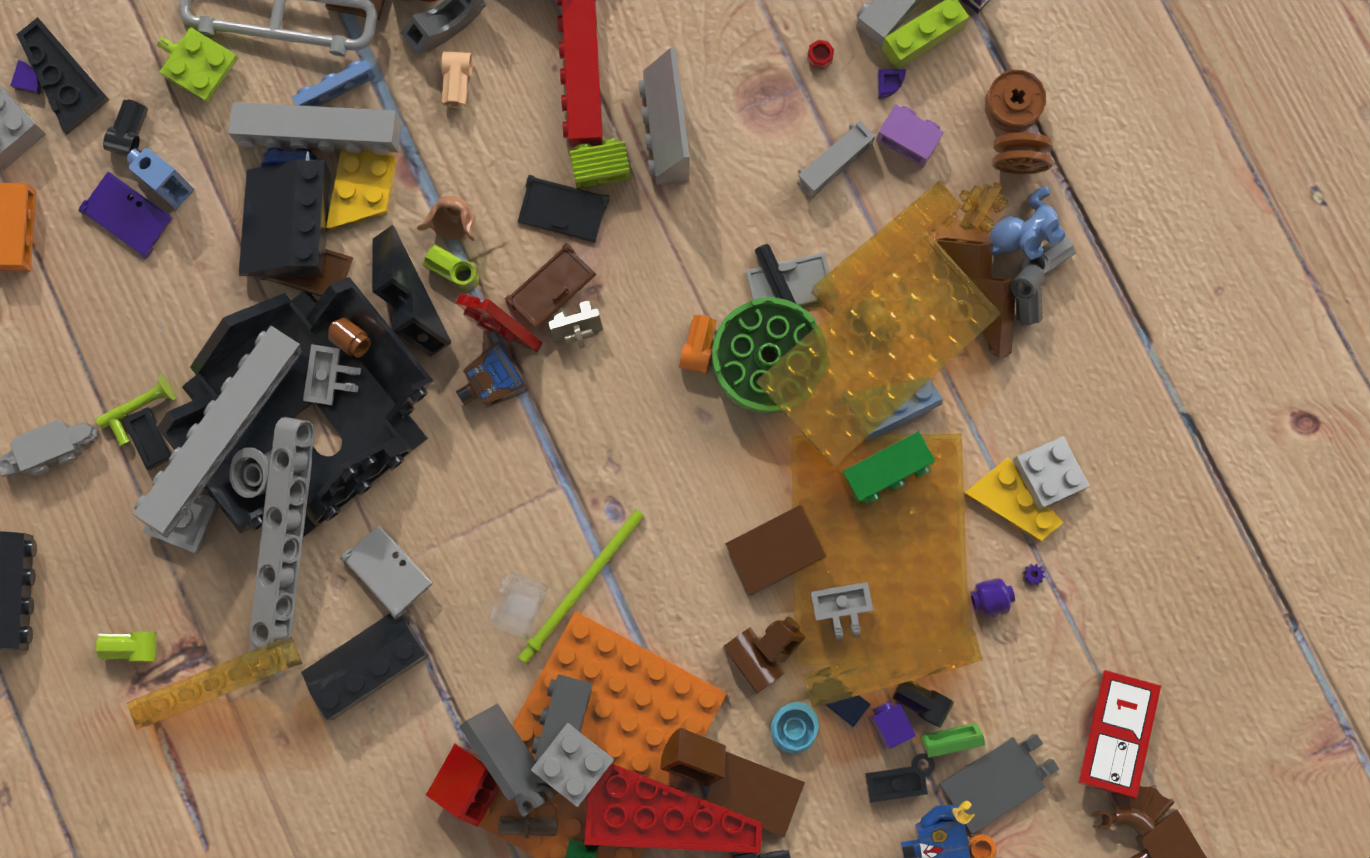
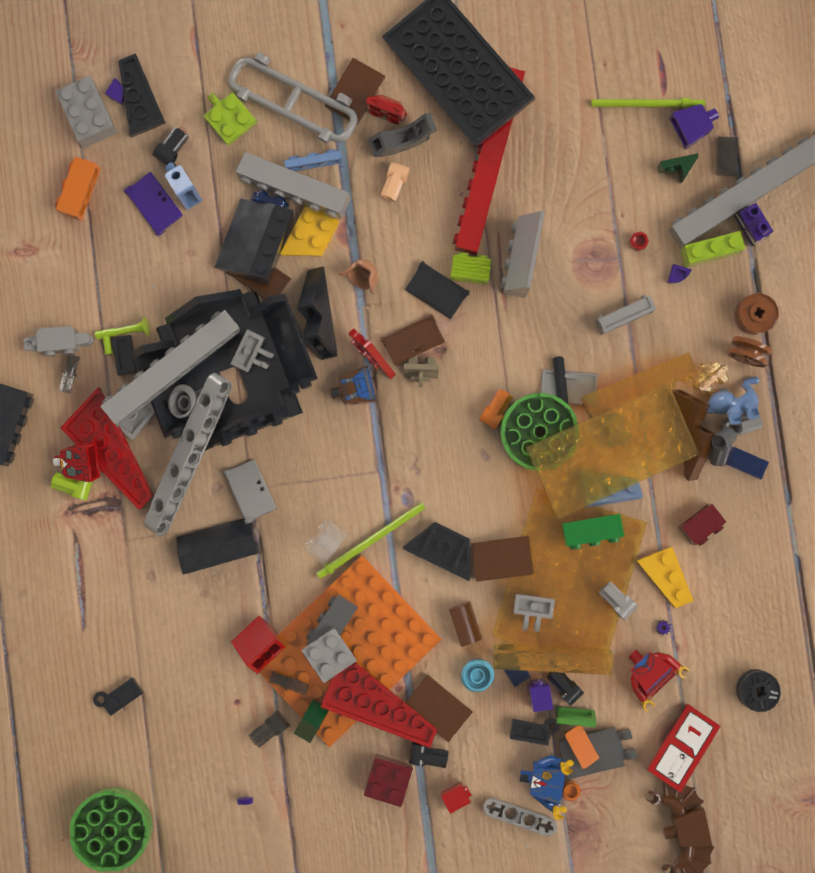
camera: 20 degrees right, 5 degrees up
(76, 489) = (69, 373): none -> clear smoke axle
(128, 608) = (79, 462): none -> red torso
(164, 576) = (115, 456): none -> red wing
(214, 683) = (119, 528): clear yellow brick -> none
(349, 337) = (272, 332): dark orange brick -> none
(450, 268) = (351, 306): lime piece -> none
(506, 758) = (288, 637): dark grey tile -> none
(687, 564) = (443, 548): none -> black wing
(694, 757) = (407, 674): reddish brown brick -> none
(780, 640) = (486, 617): reddish brown brick -> none
(910, 135) = (680, 314): medium lavender brick -> none
(964, 558) = (621, 603): none -> light grey piece
(974, 778) = (581, 746): none -> orange slope
(992, 598) = (631, 634): dark purple head -> none
(1039, 412) = (702, 524): none -> dark red brick
(1040, 643) = (652, 674): none -> red torso
(1051, 473) = (696, 566): light grey plate -> none
(1071, 308) = (747, 463): none -> clear blue tile
(1184, 629) = (755, 701): none -> black wheel

